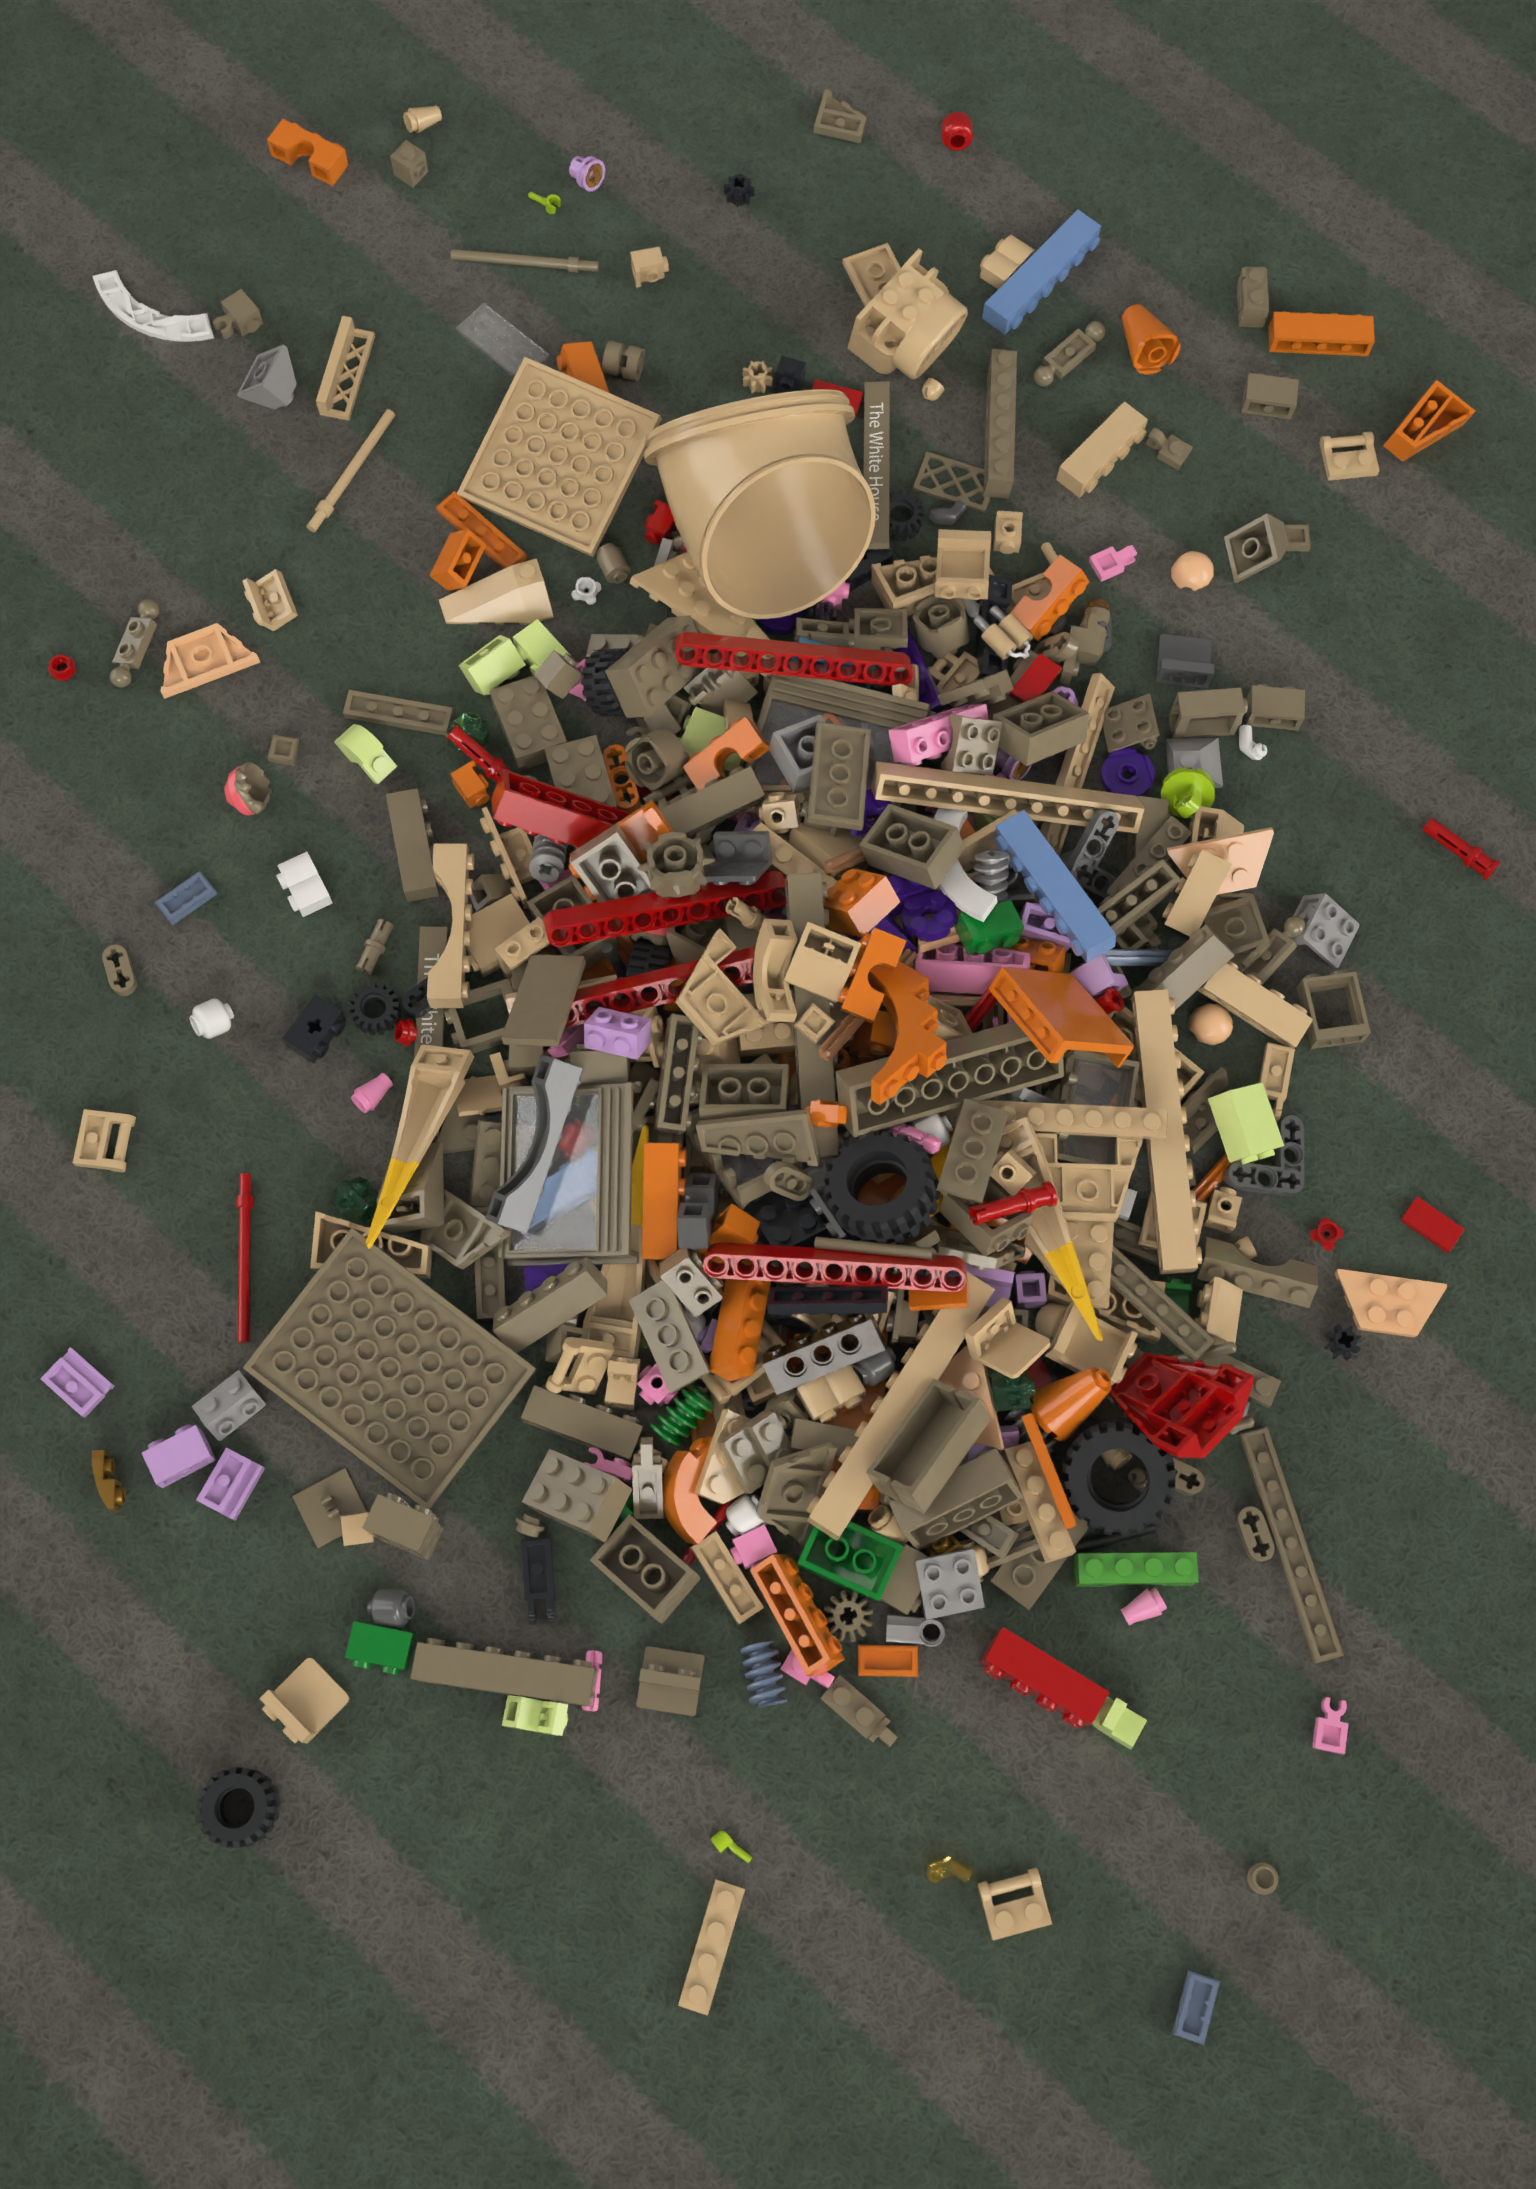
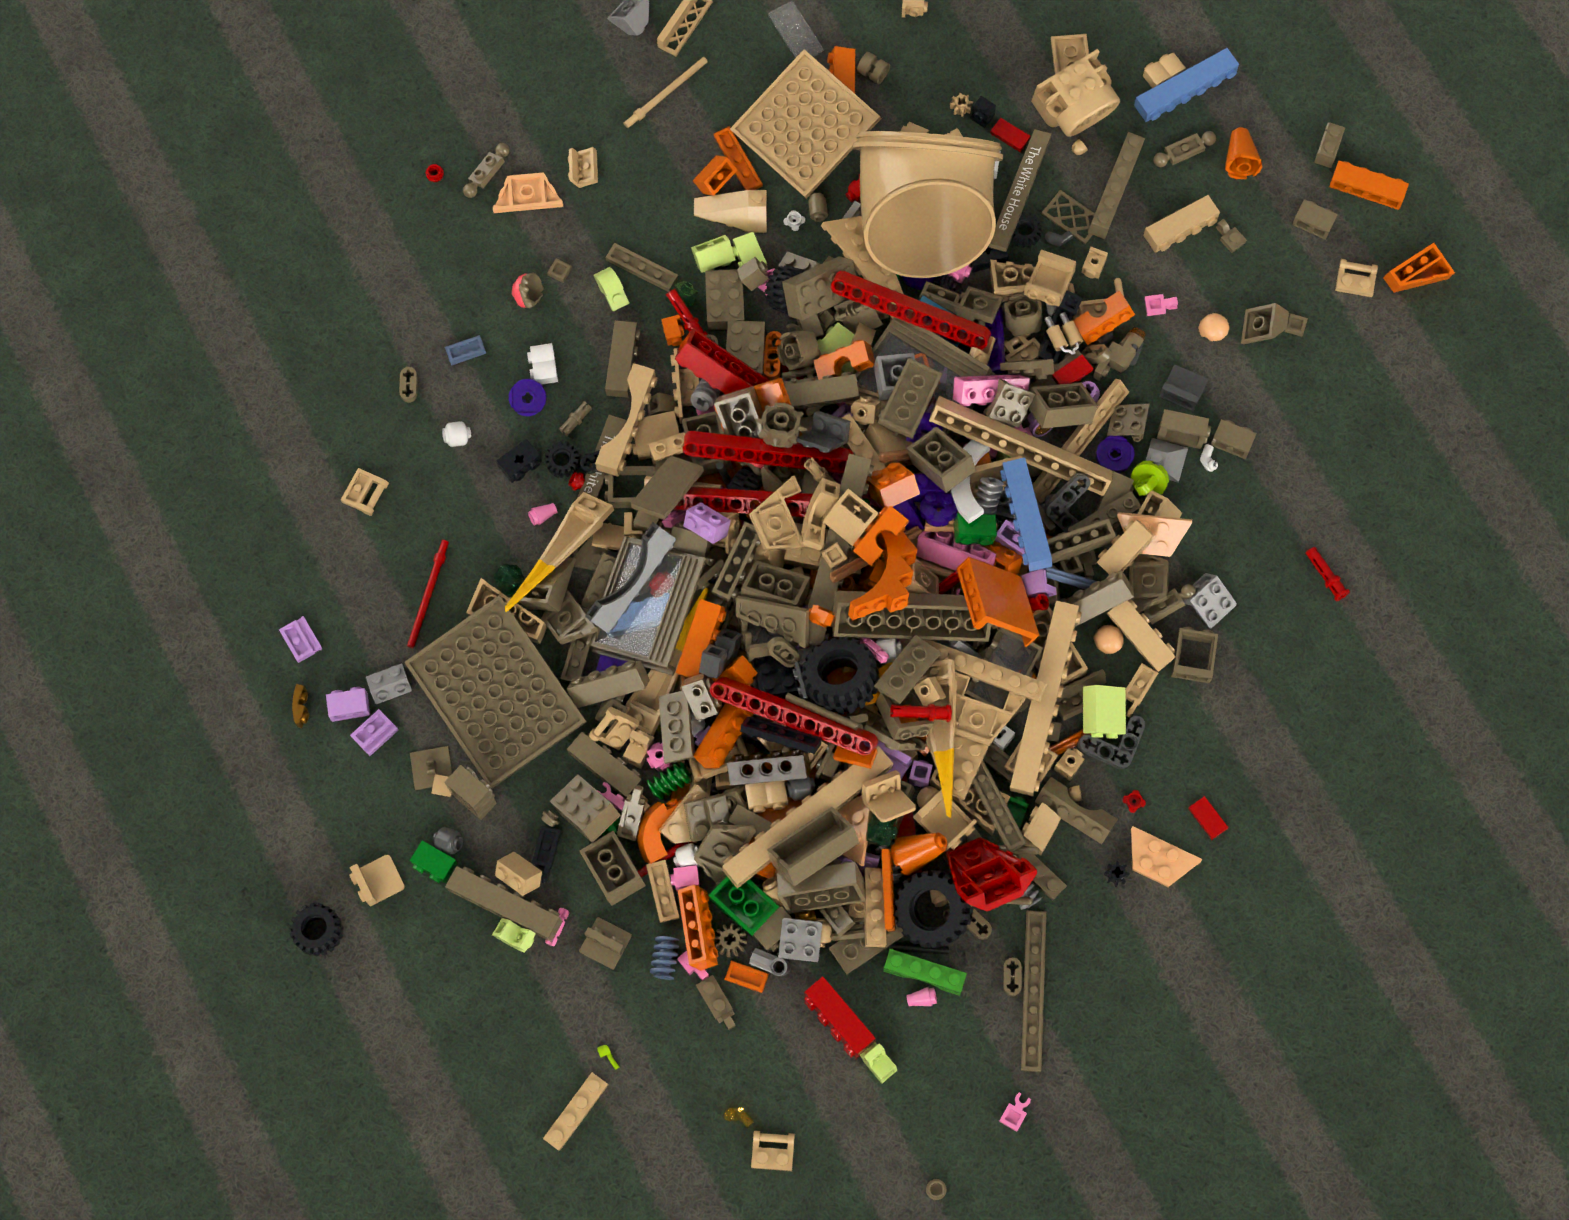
camera: 25 degrees right, 0 degrees up
(282, 930) = (519, 390): none -> dark purple plate
(511, 1623) = (518, 873): none -> tan brick

